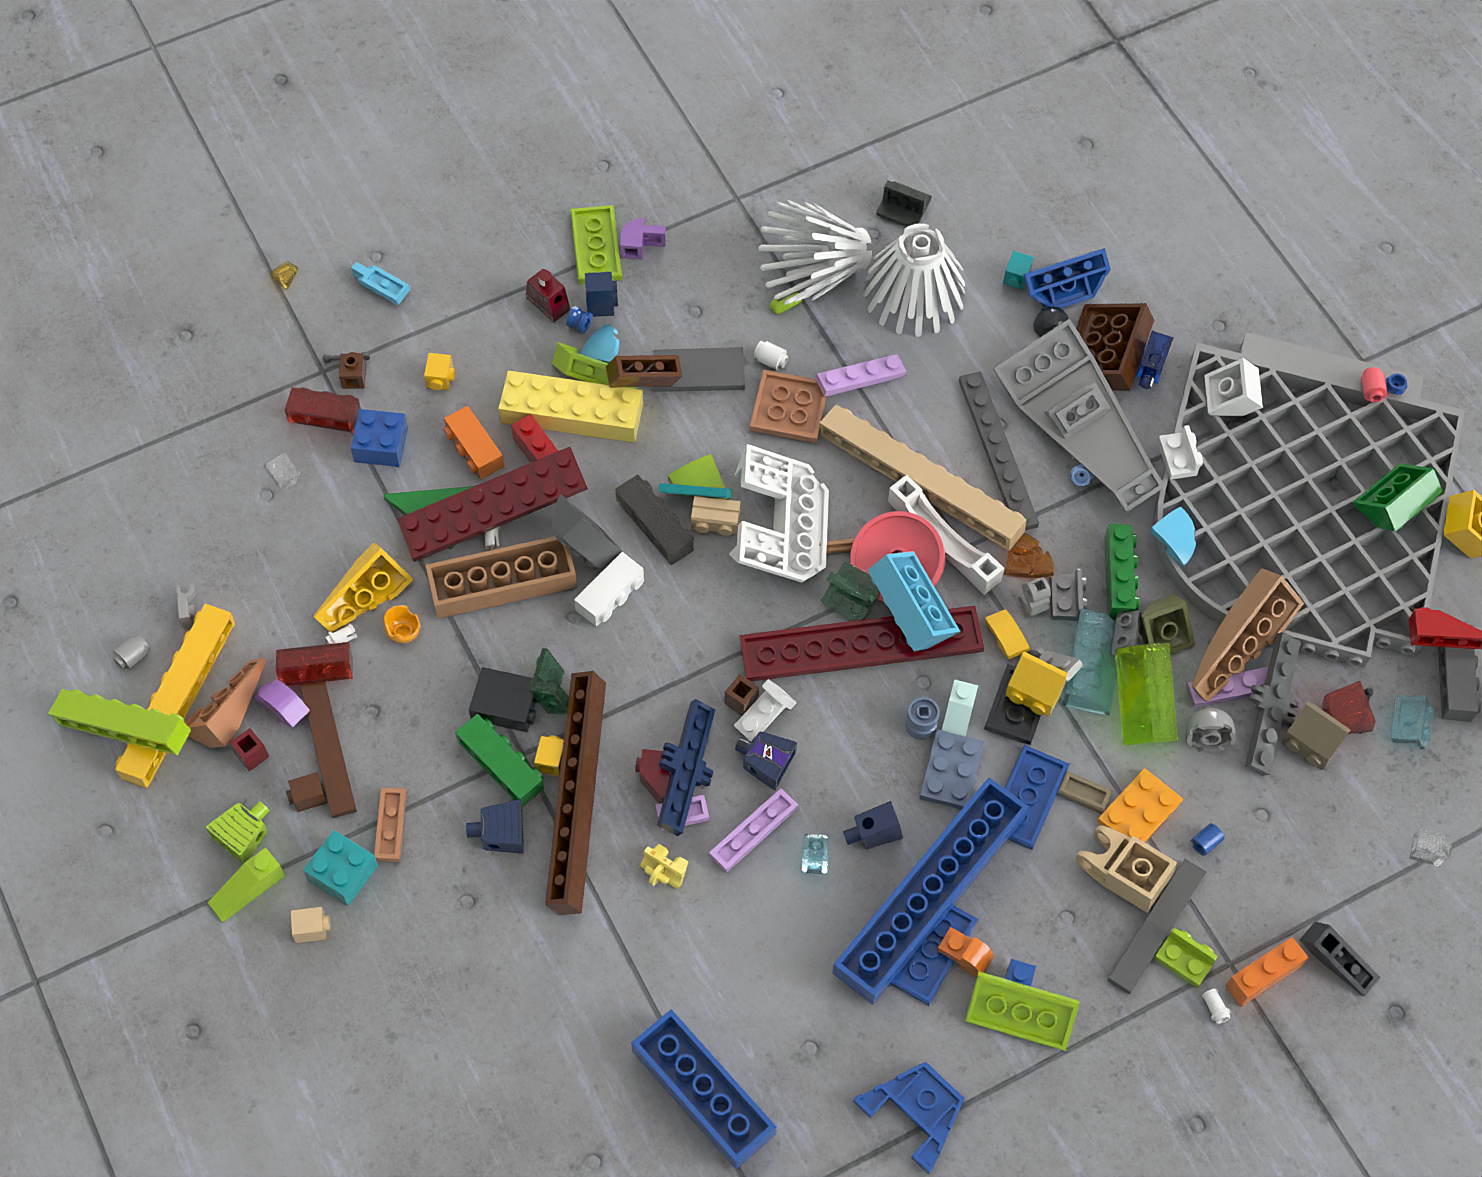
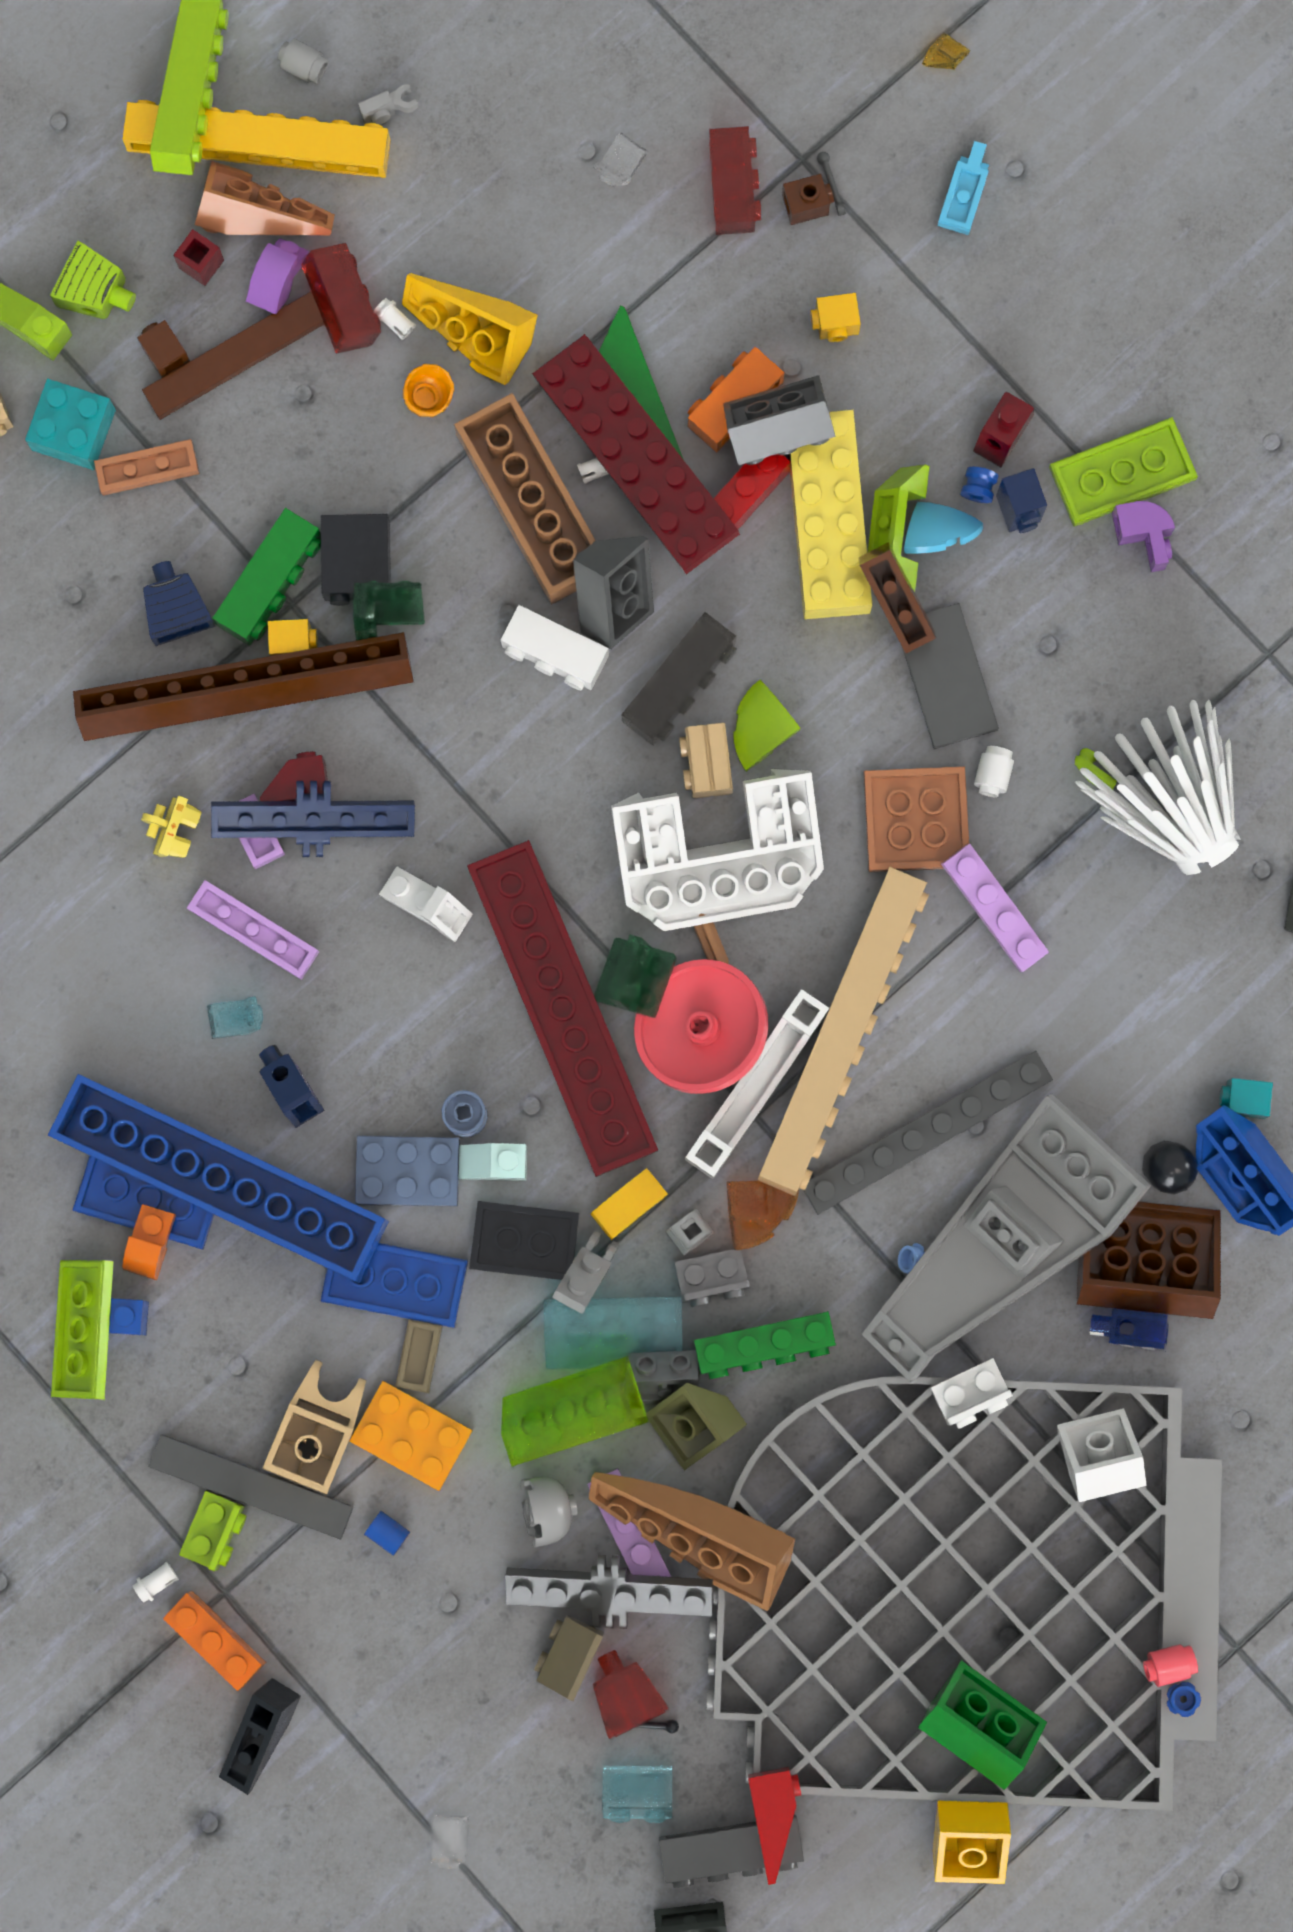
camera: 80 degrees right, 20 degrees up
(379, 437) = (706, 270): blue brick -> none
(502, 407) = (778, 421): none -> slope
(695, 490) = (735, 722): teal tile -> none
(741, 695) = (436, 865): reddish brown brick -> none
(767, 757) = (358, 921): dark blue torso -> none
(913, 600) = (630, 1062): medium azure slope -> none
(917, 259) = (1165, 959): white plant -> none
(1036, 684) = (538, 1255): yellow slope -> none
(1177, 534) = (835, 1412): medium azure brick -> none

